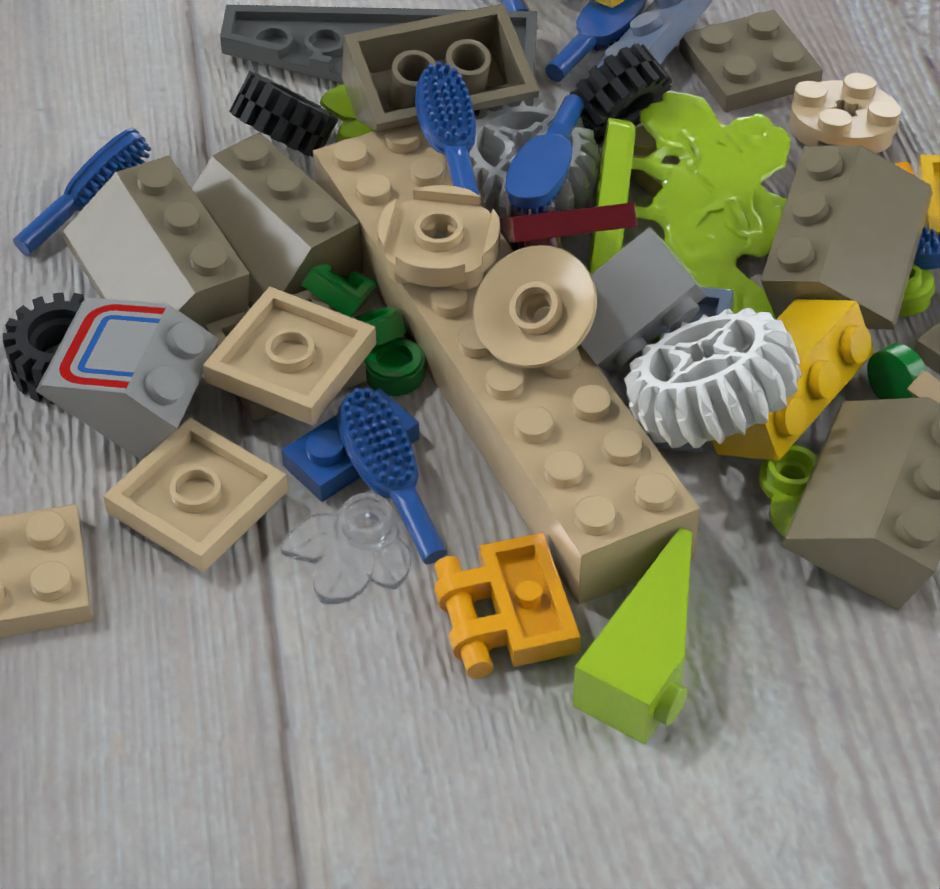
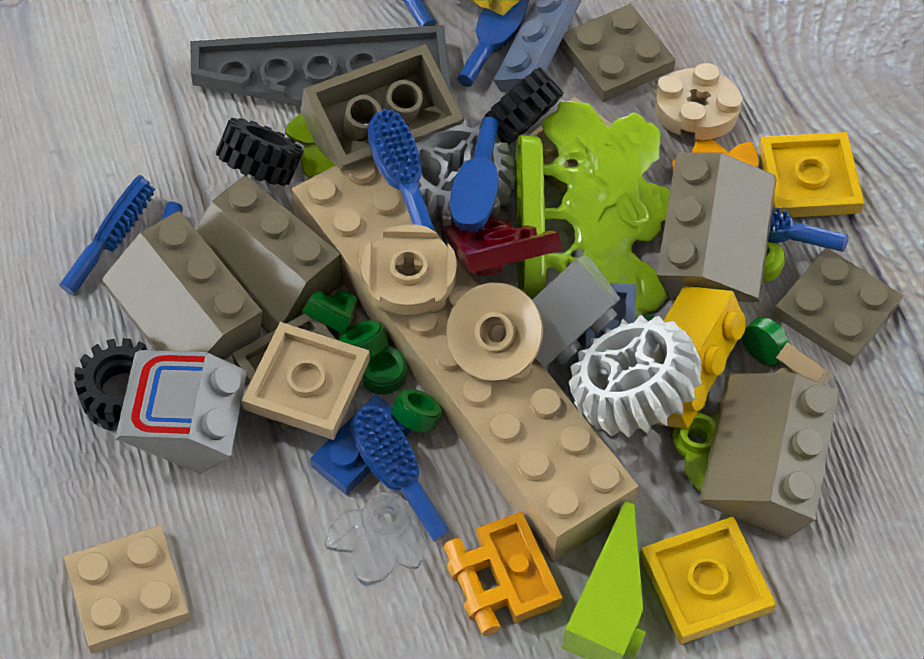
camera: 10 degrees left, 10 degrees up
(196, 494) = (252, 505): tan plate -> none
(428, 409) = (416, 410): none -> green tile
(781, 641) = (707, 580): none -> yellow plate

